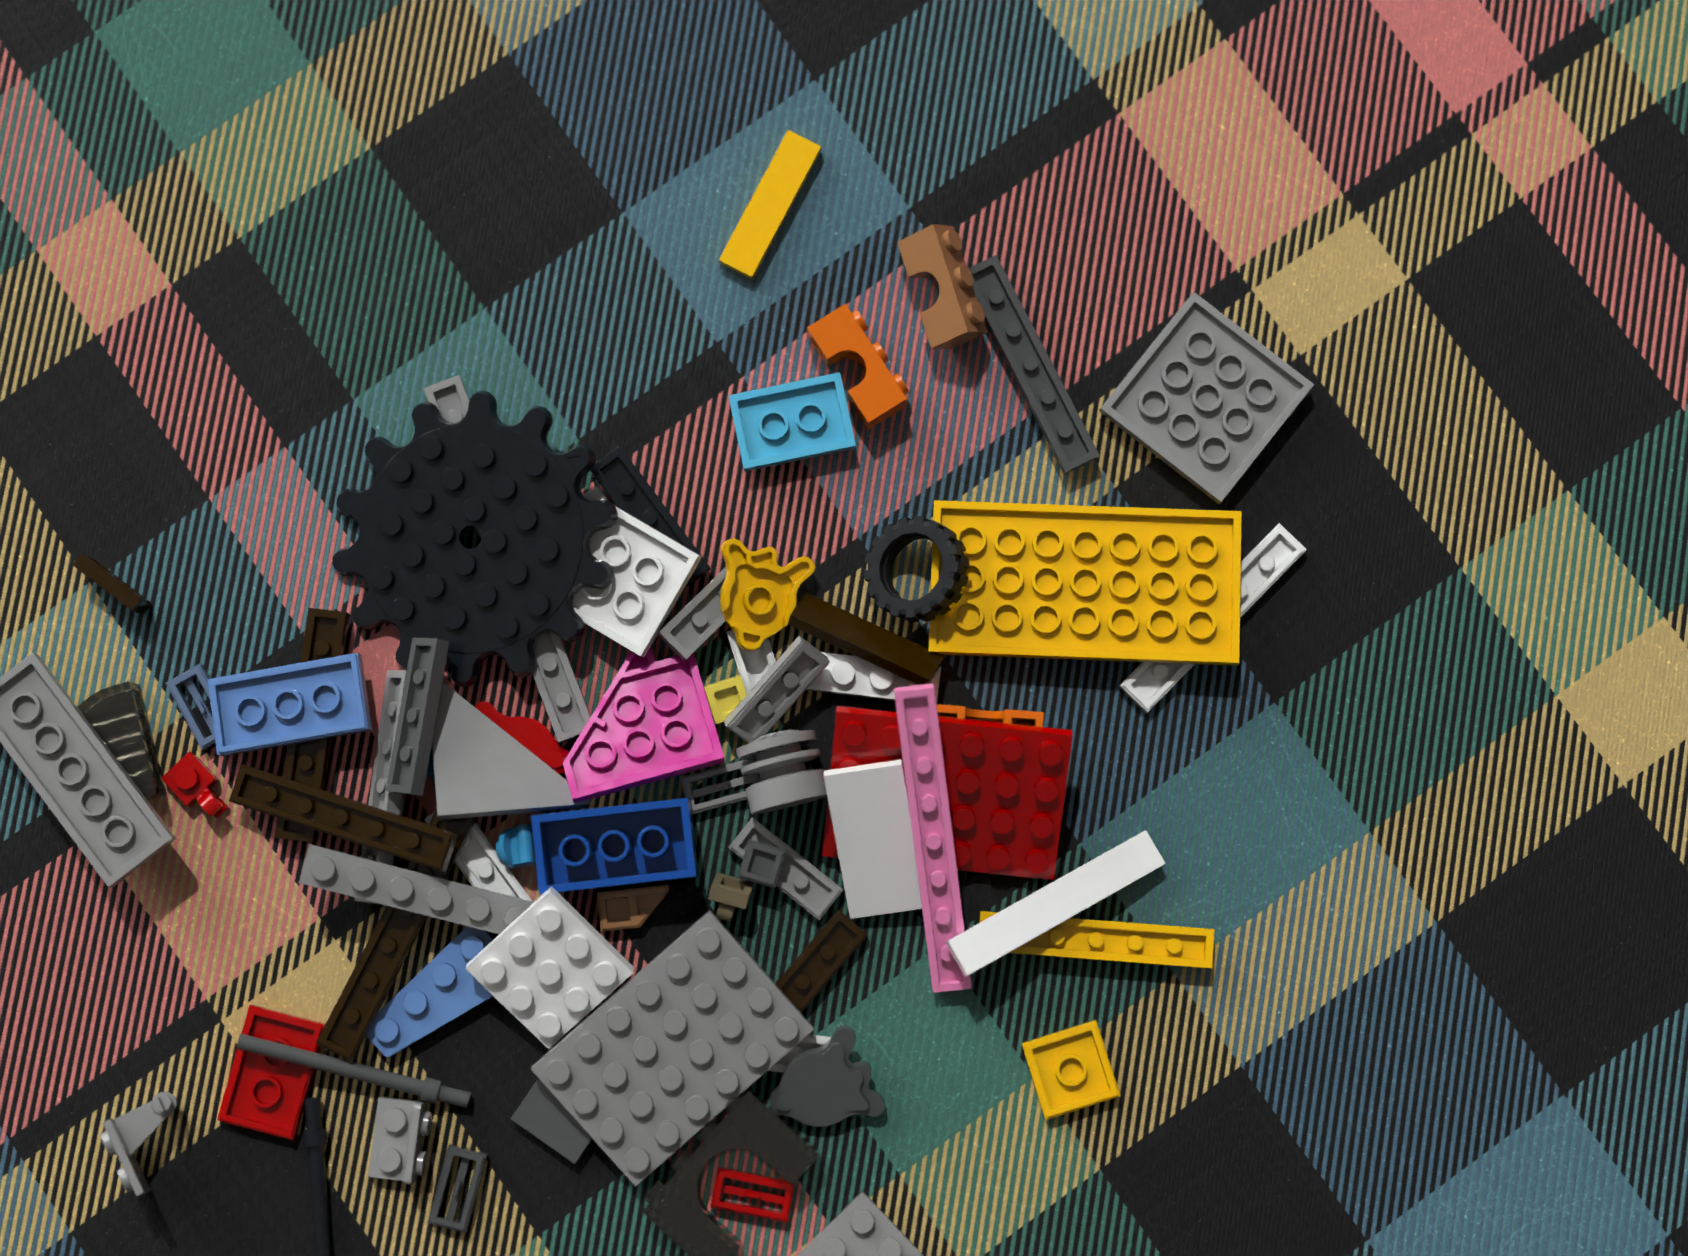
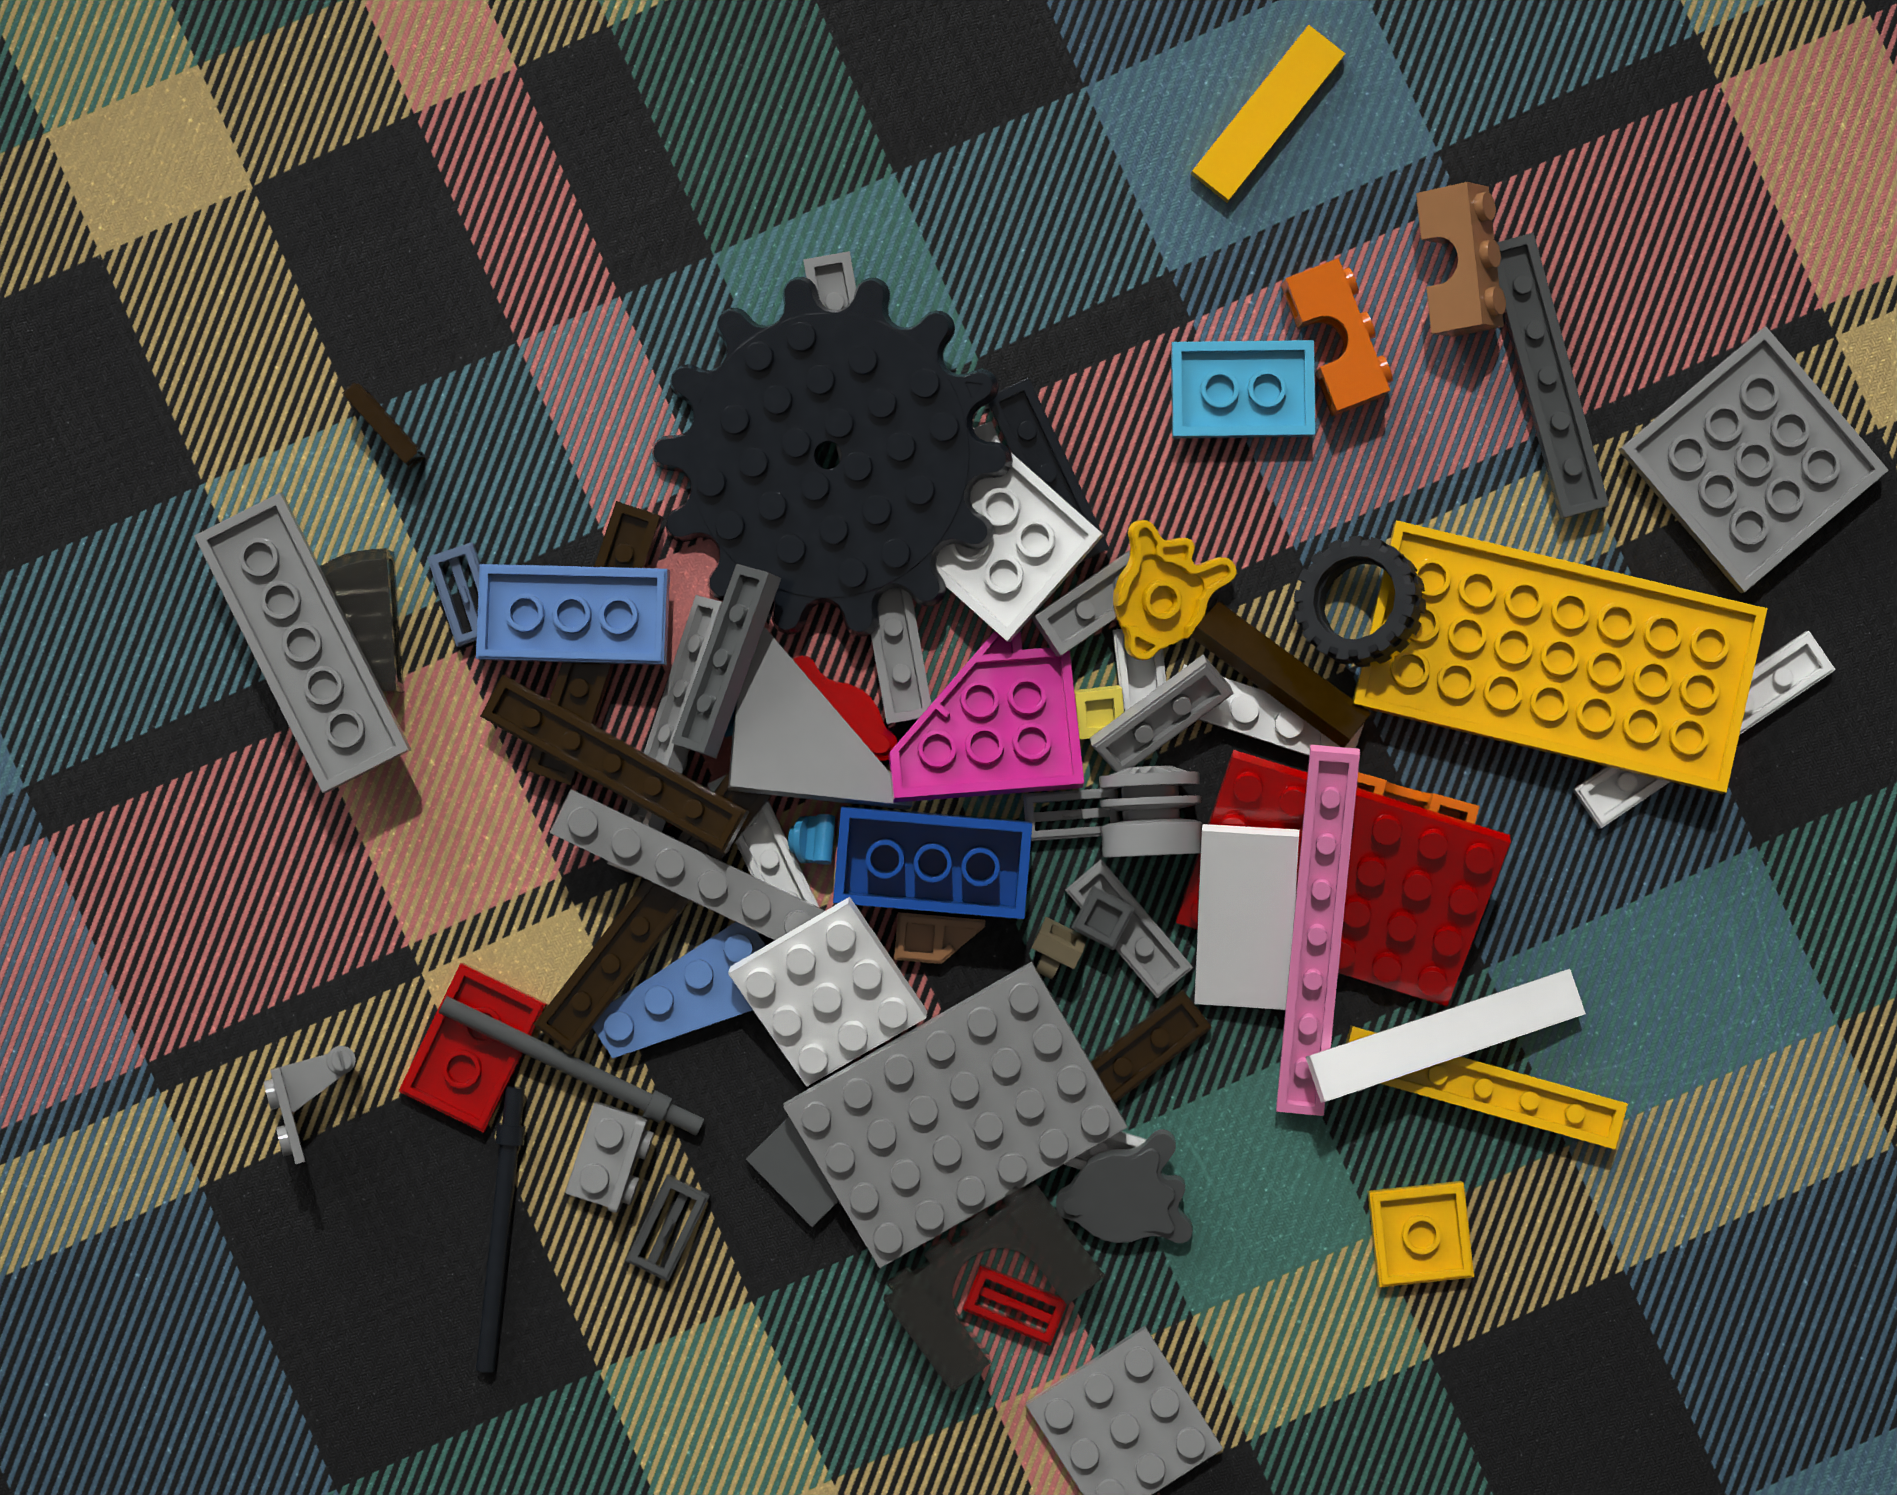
camera: 15 degrees right, 5 degrees up
(193, 782) = (437, 684): red plate -> none

